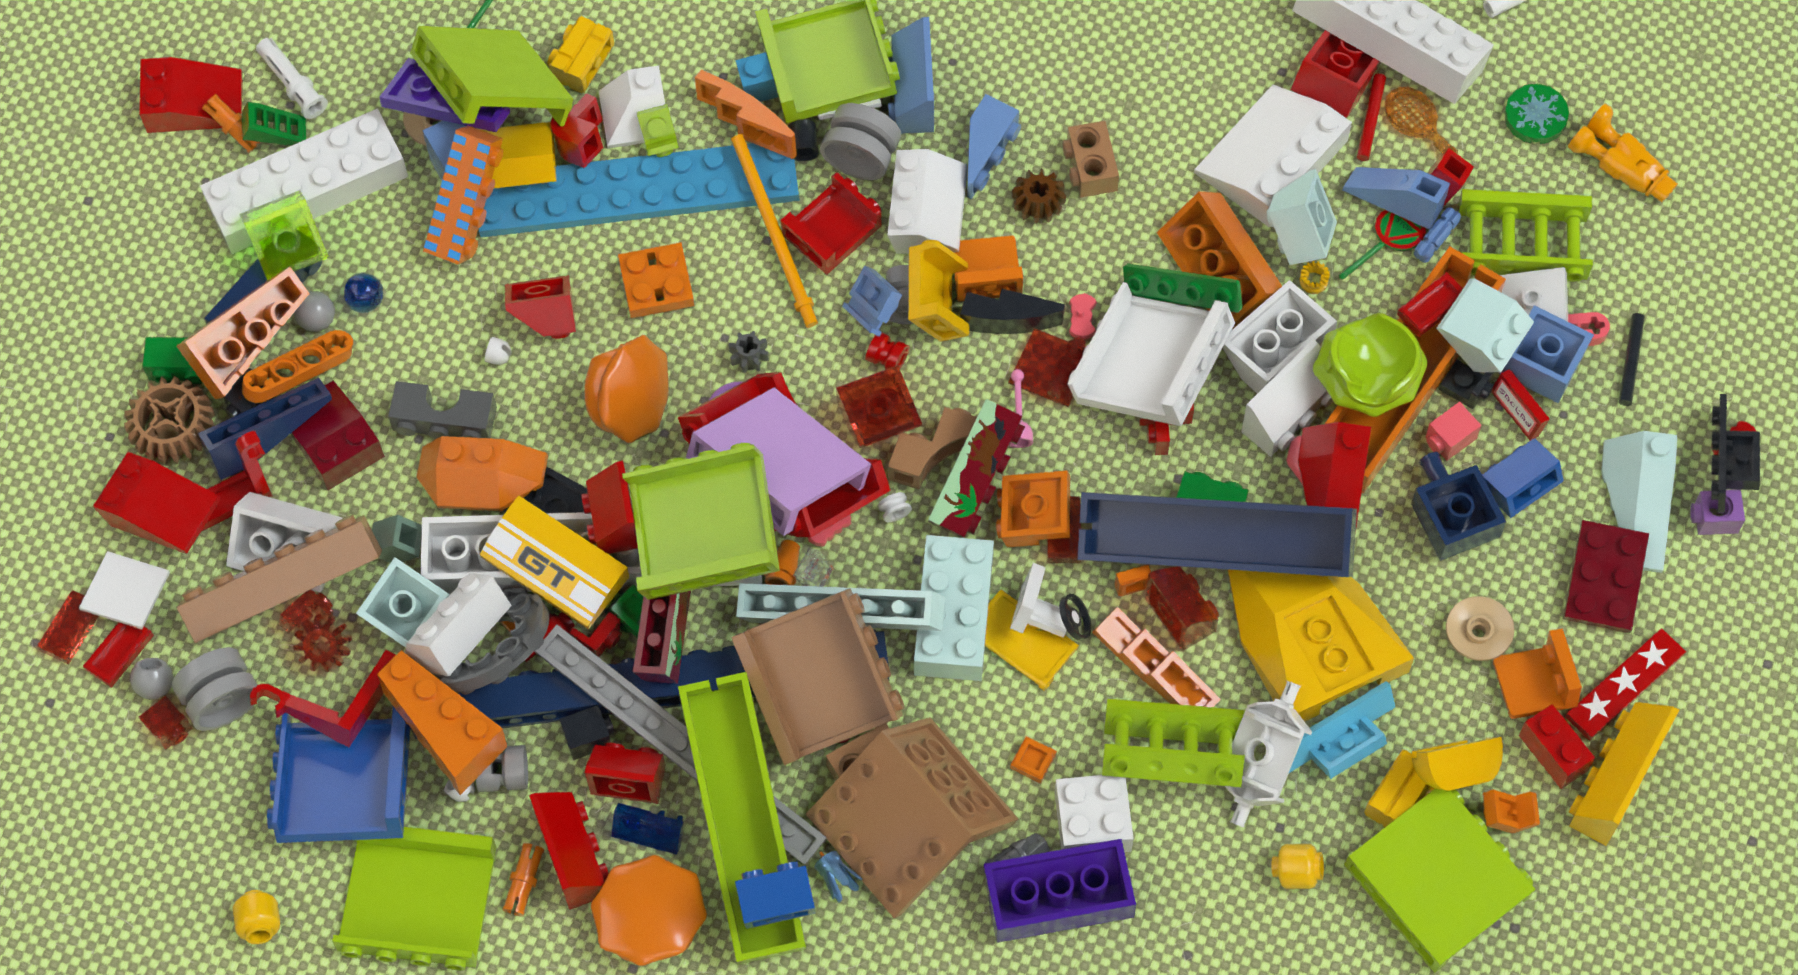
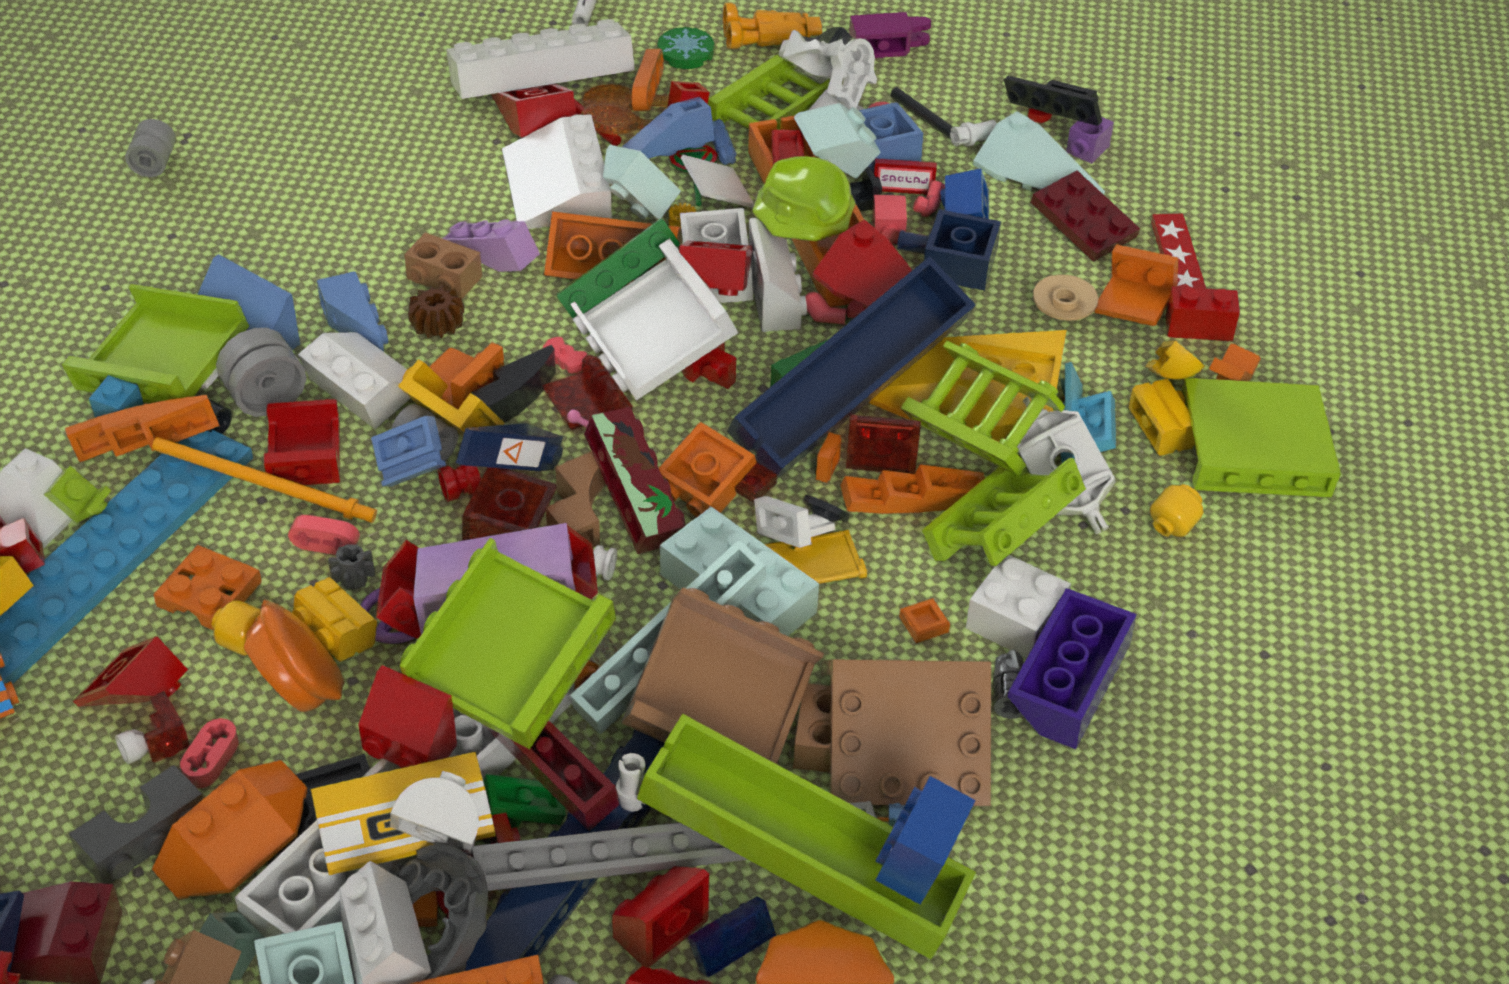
camera: 55 degrees left, 20 degrees down
(526, 362) = (169, 731): none -> clear red bracket
(532, 400) = (215, 755): none -> coral beam
(549, 590) = (437, 812): none -> white brick
(586, 730) = (585, 923): black brick -> none
(635, 323) = (232, 624): none -> yellow head
(690, 672) = (630, 781): none -> white pin
(693, 377) = (335, 618): none -> yellow brick
(761, 310) = (322, 534): none -> coral beam
(933, 368) = (510, 447): none -> dark blue slope
(1149, 171) = (501, 244): none -> lavender slope
(1226, 645) = (978, 440): none -> lime fence
(1241, 354) = (719, 264): none -> red slope
(1373, 271) = (717, 181): none -> white piece
(1394, 154) = (614, 119): none -> clear orange piece
(1449, 123) = (647, 80): none -> orange beam
(1499, 448) = (931, 203): none -> coral arm
(1590, 258) = (836, 57): none -> white hips
(1622, 770) = (1270, 295): yellow slope -> none
(1636, 416) = (970, 133): none -> white pin
(1706, 254) = (891, 32): none -> magenta hinge

